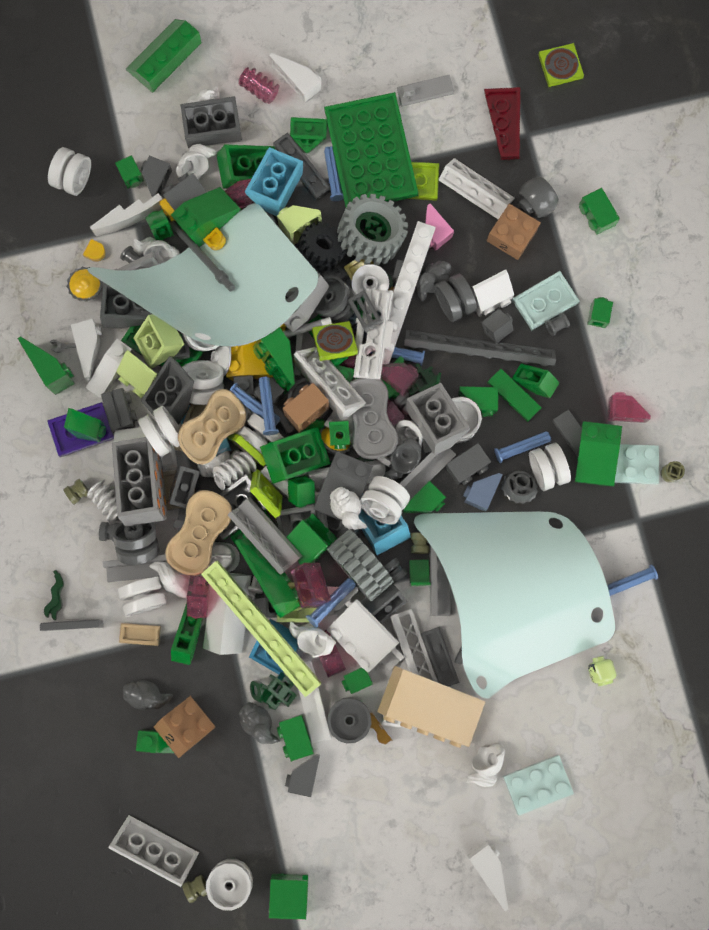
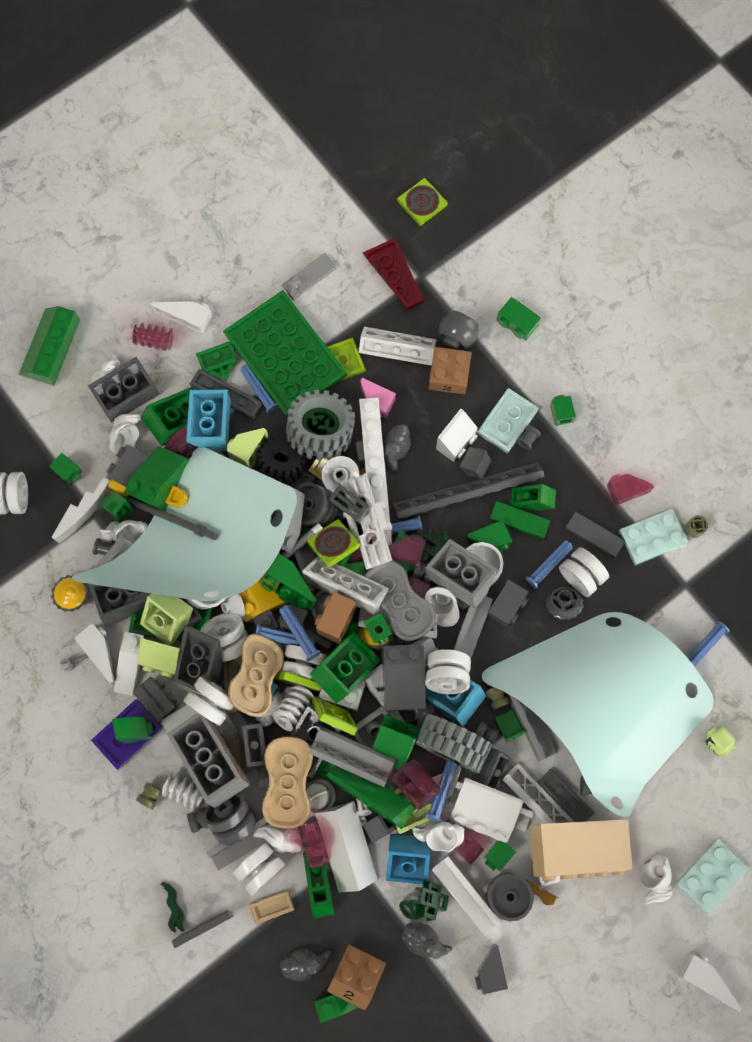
camera: 20 degrees left, 5 degrees down
(54, 374) = (77, 691): green slope -> none
(94, 251) = (64, 558): yellow tile -> none
(156, 174) = (92, 461): dark grey slope -> none
(261, 628) = (388, 847): yellowish green plate -> none
(295, 738) = (466, 937): green brick -> none
(301, 491) = (366, 698): green brick -> none
(347, 507) = (416, 694): white hair -> none
(404, 458) = (447, 624): dark grey hair -> none
(426, 500) = (485, 654): green slope -> none
(455, 297) = (425, 454): dark grey wheel -> none
(482, 492) = (533, 623): sand blue slope -> none
(598, 453) = (622, 540): green slope -> none

